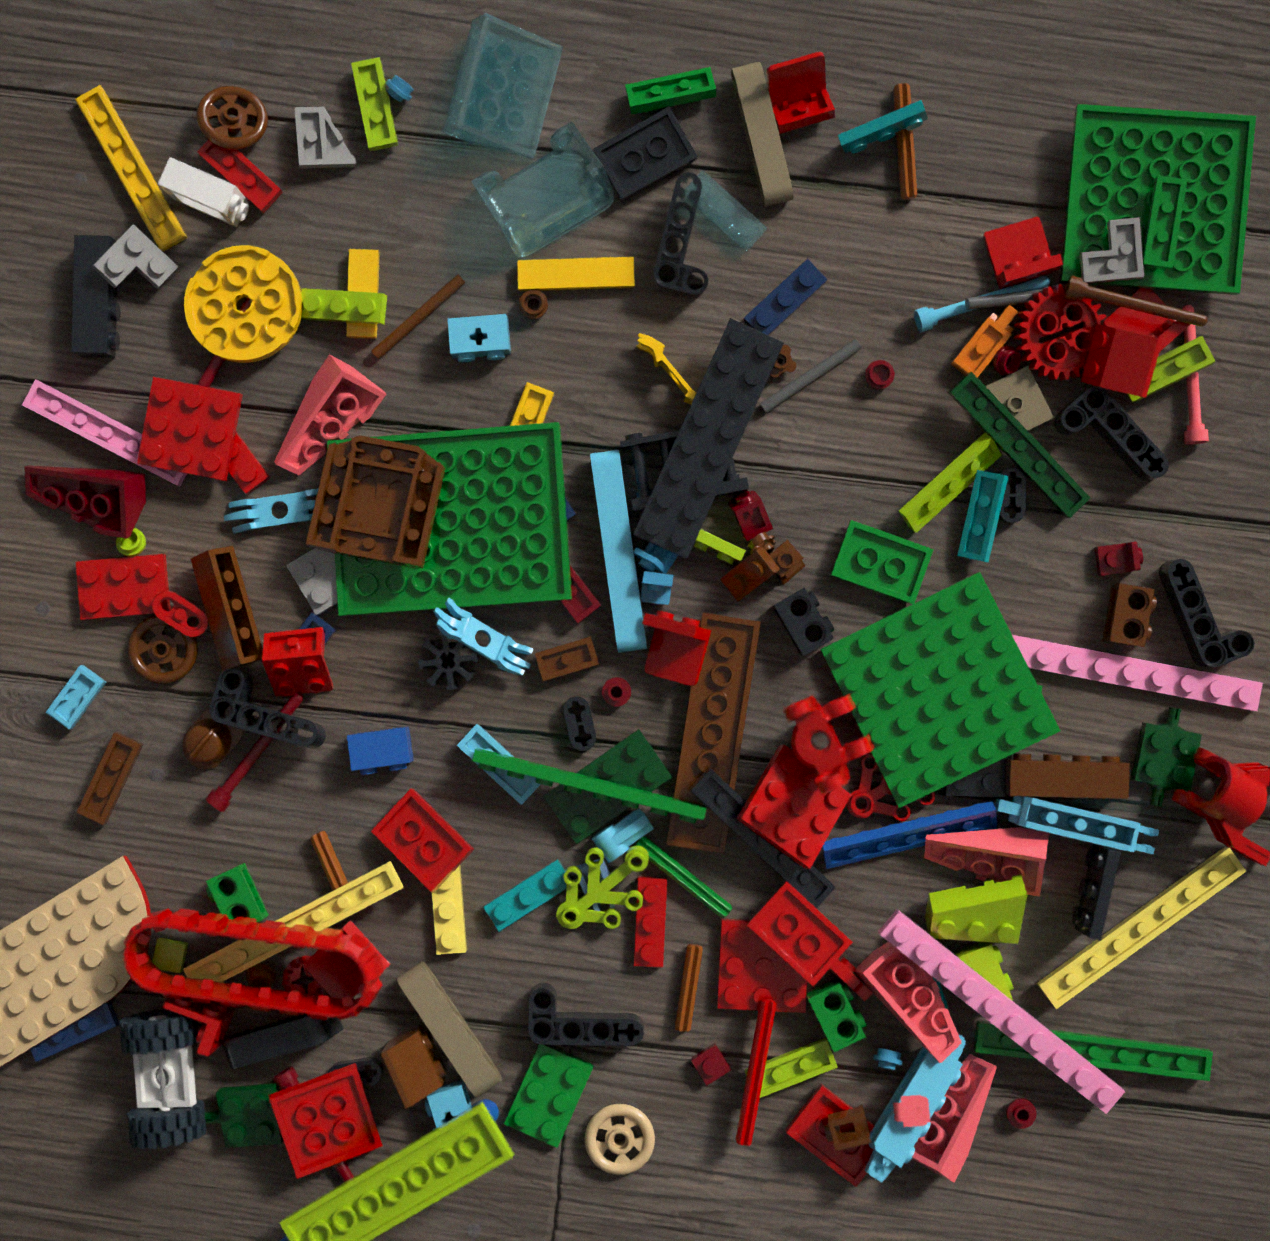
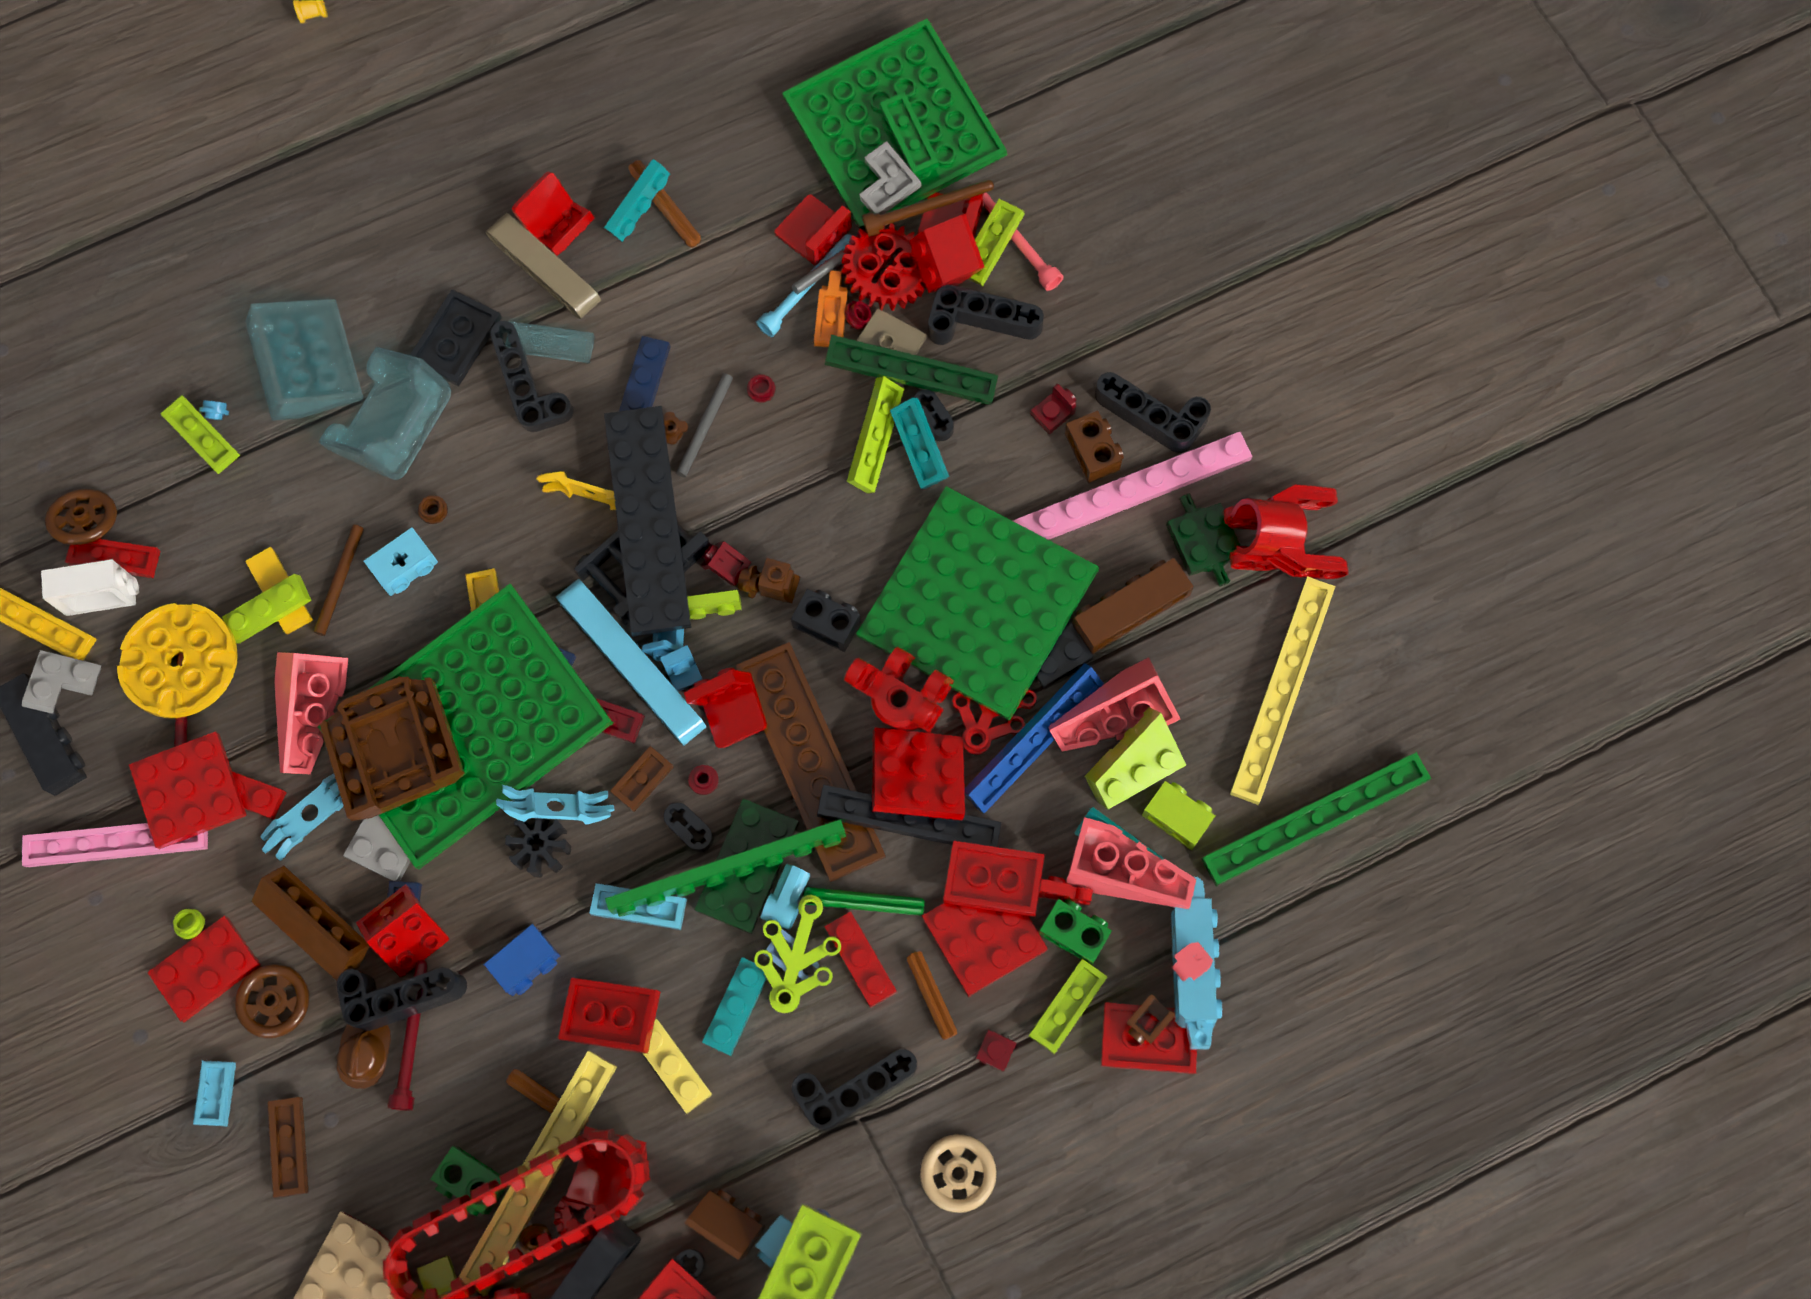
camera: 30 degrees left, 15 degrees down
(98, 497) = (133, 905): dark red wedge -> none
(179, 614) = (269, 954): red plate -> none
(319, 141) = (169, 491): light grey wing -> none
(449, 1029) = (738, 1172): dark tan beam -> none
(549, 1094) = (868, 1175): green plate -> none
(576, 273) = (455, 464): yellow tile -> none
(670, 90) = (445, 277): green plate -> none
(750, 573) = (754, 607): reddish brown plate -> none
(755, 1072) = (1037, 1026): red axle -> none
(881, 562) = (860, 532): green plate -> none
(888, 1059) = (1147, 941): dark azure plate -> none
(955, 1124) = (1244, 969): coral wedge -> none
(1001, 1011) = (1212, 830): bright pink plate -> none
(1013, 1109) = (1288, 920): dark red plate -> none
(1076, 823) = (1167, 635): medium azure hinge -> none
(1096, 891) = (1221, 679): black plate -> none

